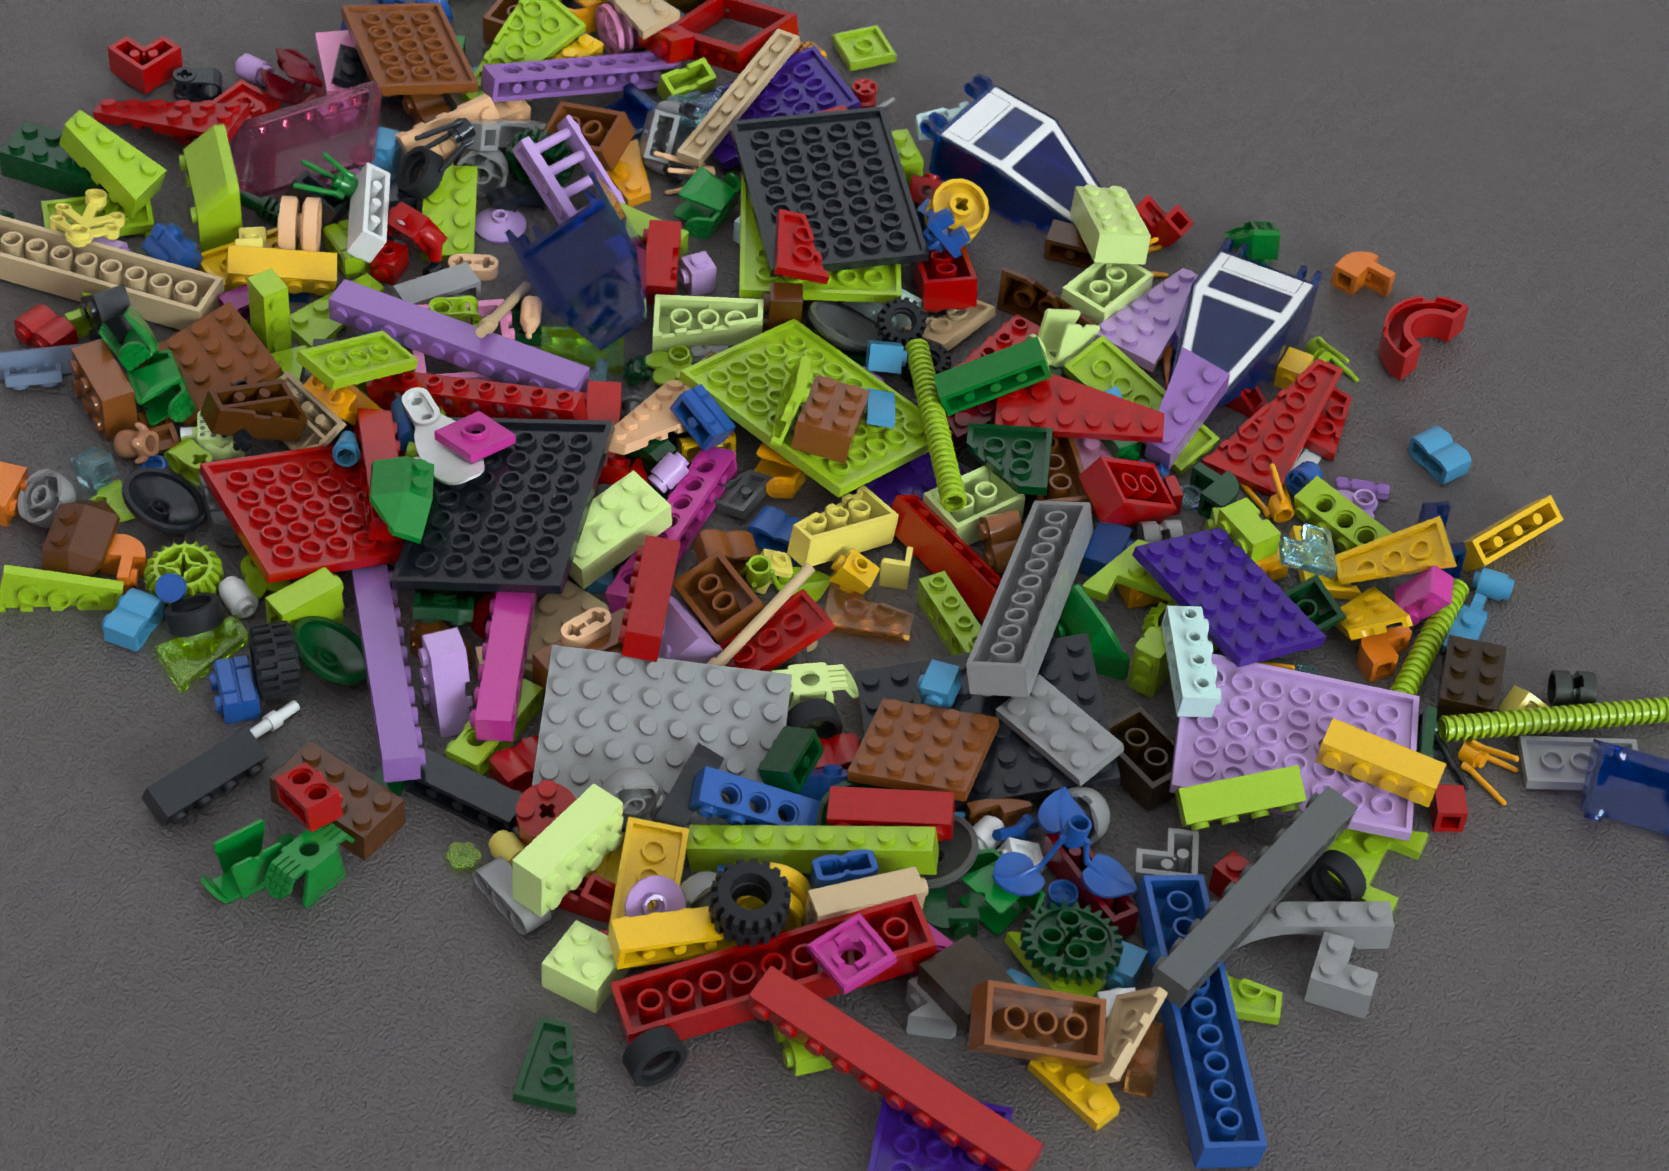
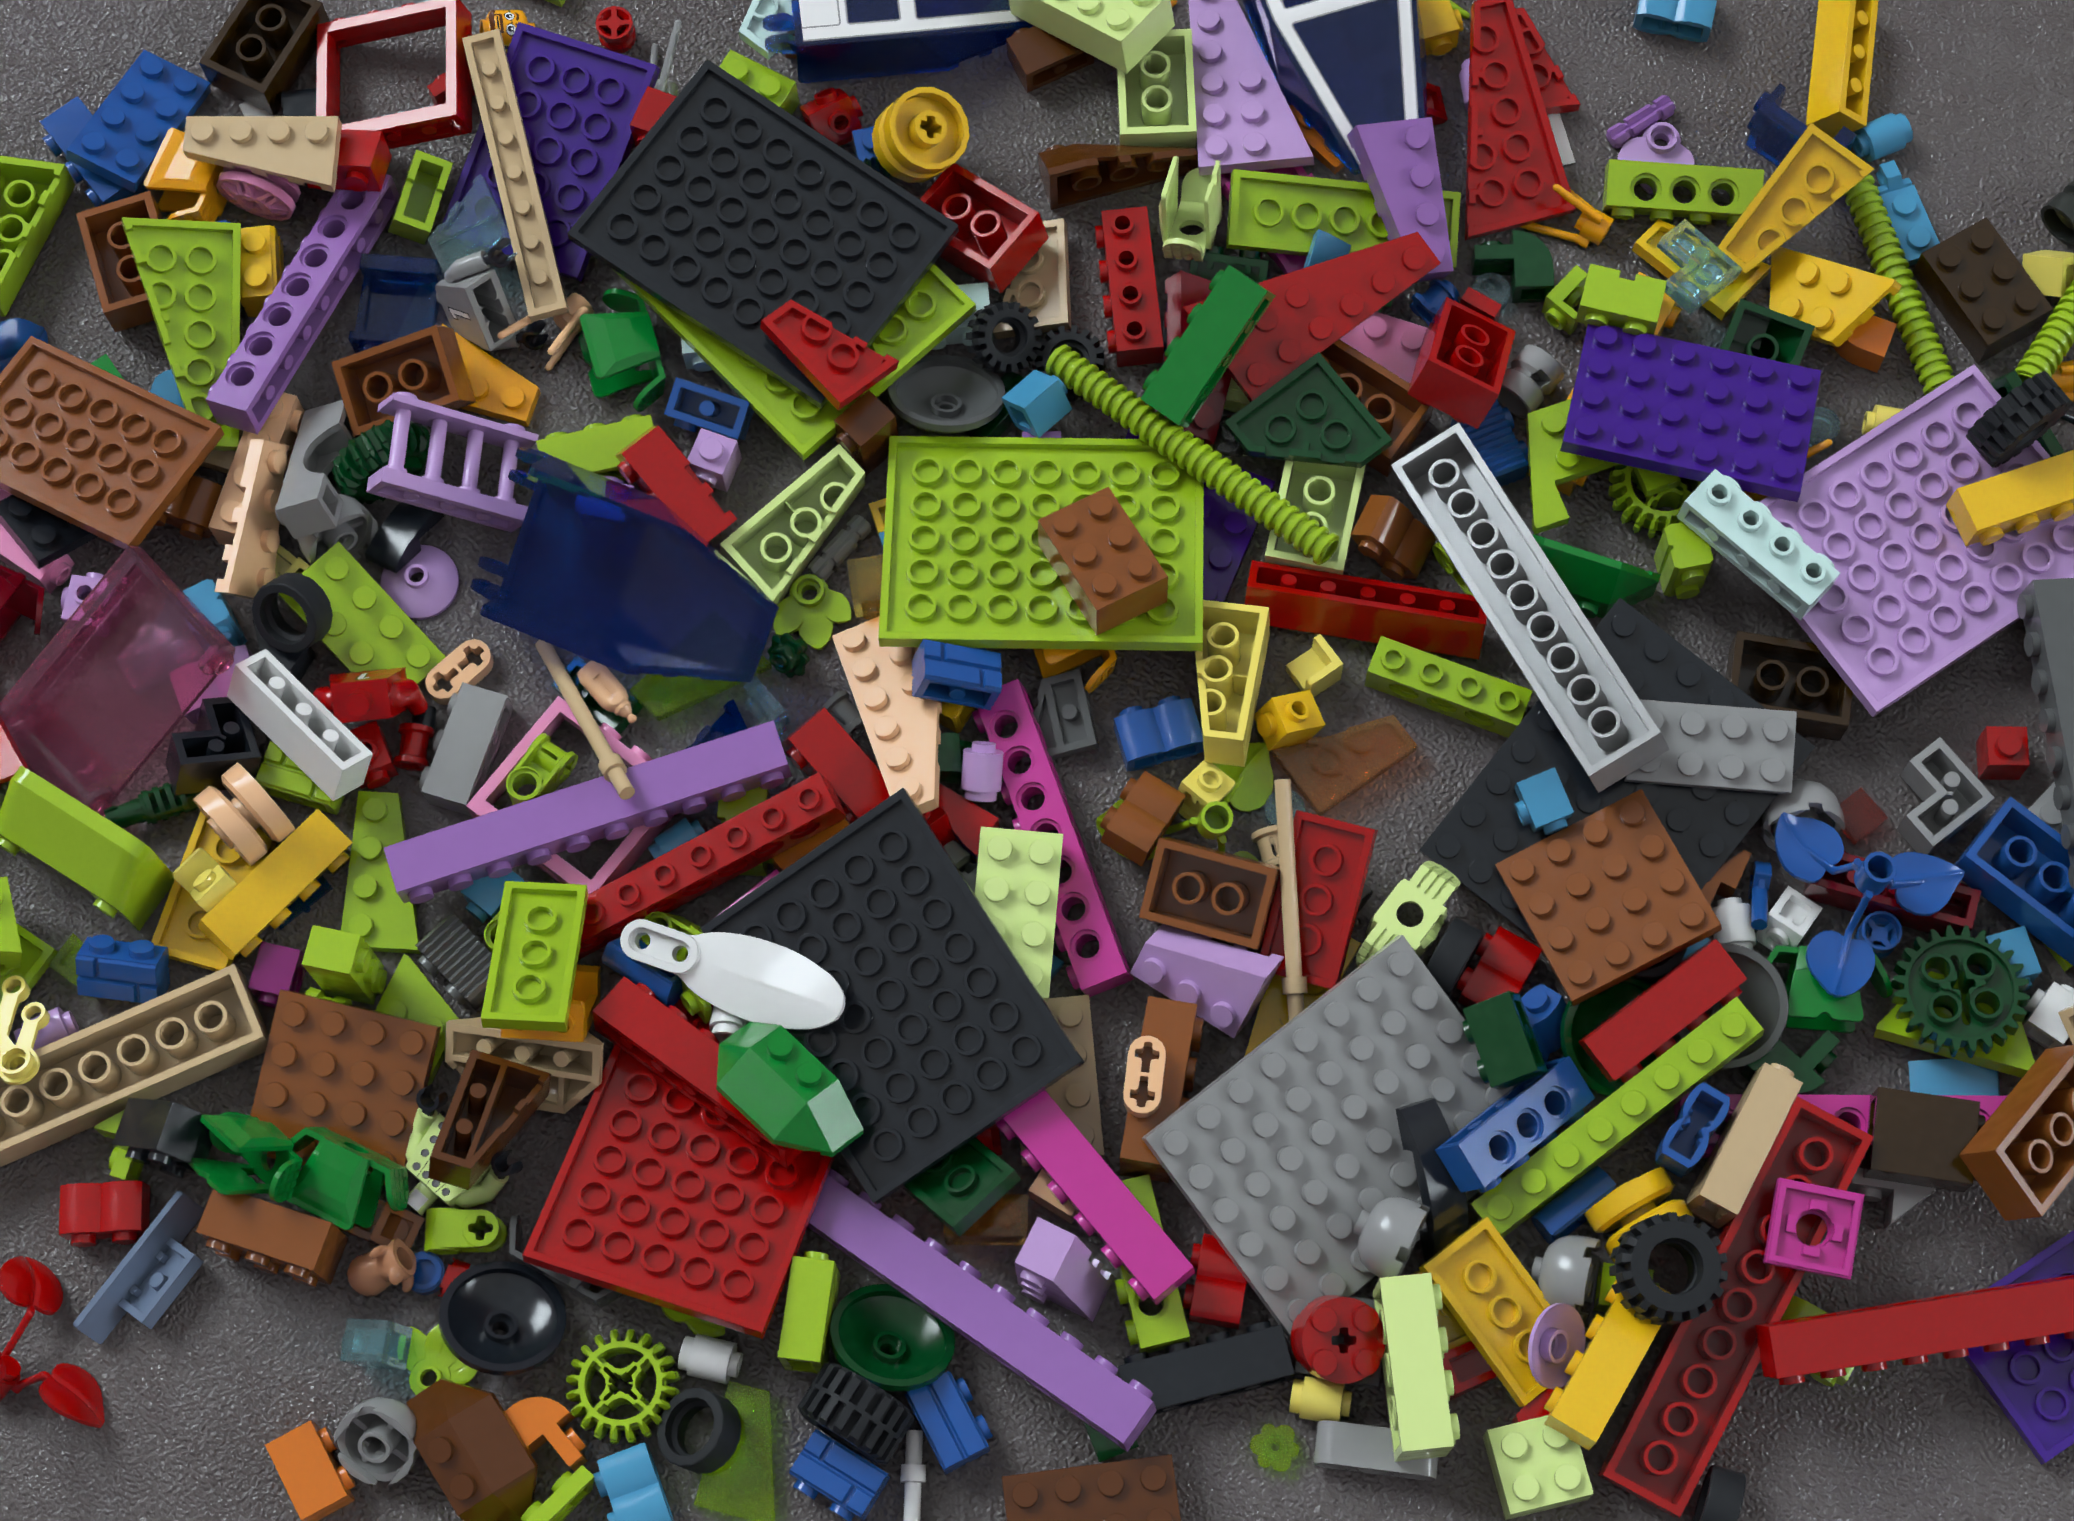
camera: 35 degrees left, 25 degrees up
(171, 587) = (646, 1427): blue tile -> none
(316, 711) = (949, 1422): none -> blue brick
(343, 184) = (225, 712): green plant -> none
(346, 450) = (634, 1072): dark azure cone -> none
(419, 269) = (413, 746): none -> red bush
(458, 131) = (299, 531): black plant -> none
(470, 446) = (791, 959): dark pink piece -> none
(648, 598) = (1171, 976): red brick -> none
(720, 249) = (705, 407): none -> blue brick
(792, 393) = (1045, 576): lime wing -> none
(880, 408) = (1127, 486): dark azure slope -> none
(939, 224) = (949, 181): blue hips -> none
(1118, 847) = (1861, 816): none -> clear red tile
(1240, 796) = (1958, 667): lime brick -> none
(1301, 476) = (1583, 166): blue wheel -> none
(1420, 706) = (2019, 419): none -> black tyre
(1425, 594) = (1852, 224): dark pink brick -> none

